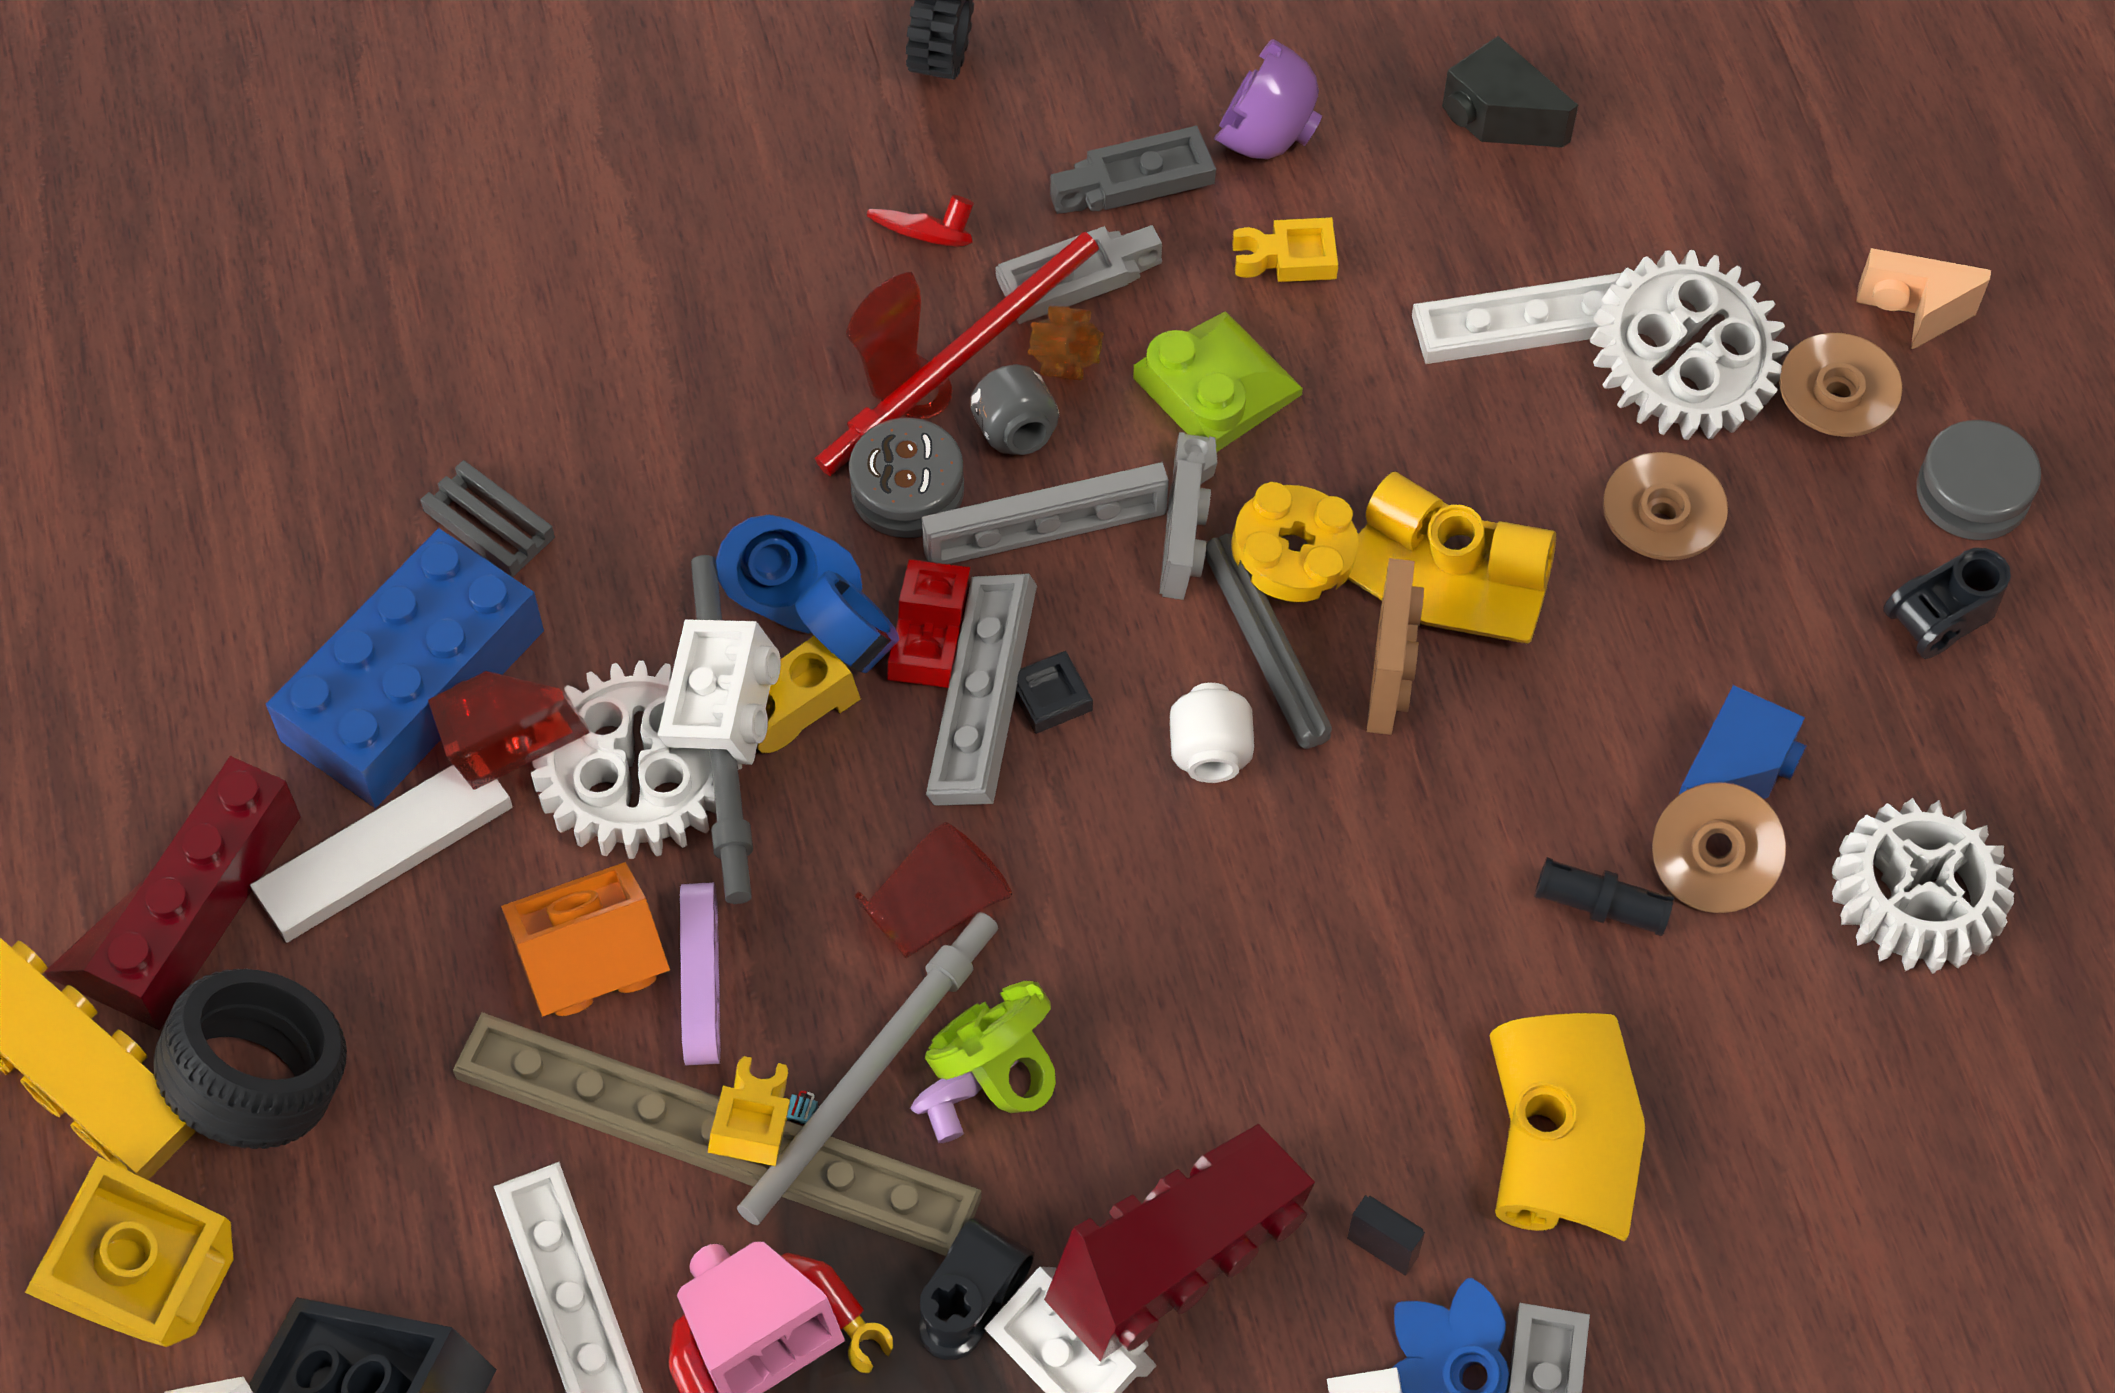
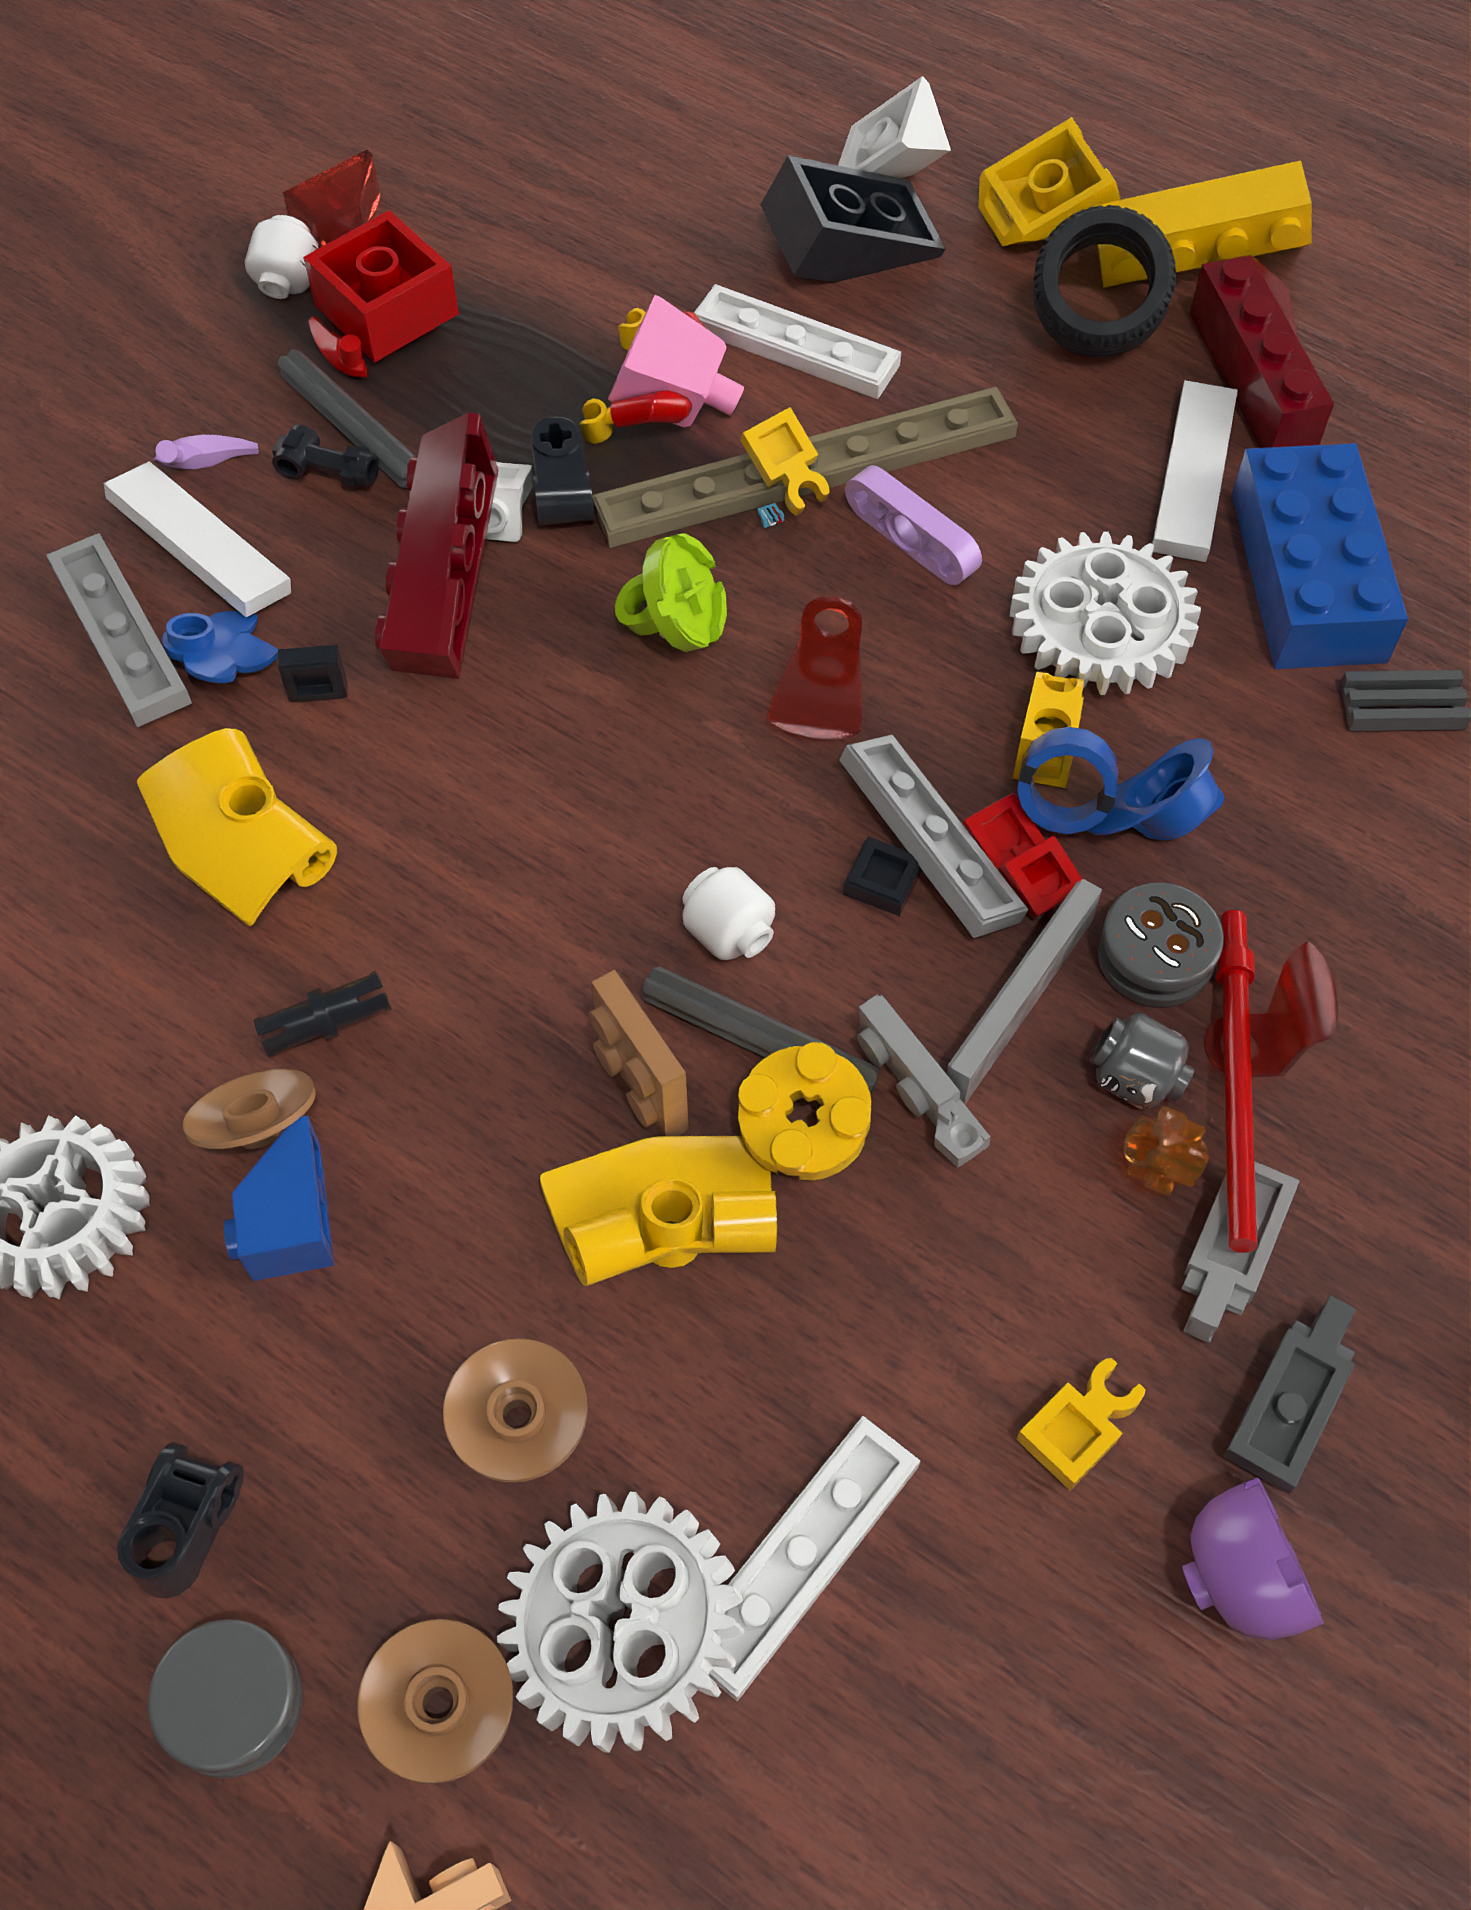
camera: 140 degrees right, 0 degrees up
(502, 724) = (1207, 539): clear red slope -> none
(586, 940) = (1008, 489): orange slope -> none
(720, 688) = (1085, 644): white bracket -> none
(731, 833) = (979, 589): dark grey bar -> none
(928, 228) = (1393, 1194): red bar -> none
(944, 973) = (758, 636): light grey bar -> none
(1214, 379) = (1019, 1239): lime slope -> none
(1507, 99) = (1052, 1805): pearl dark grey slope -> none

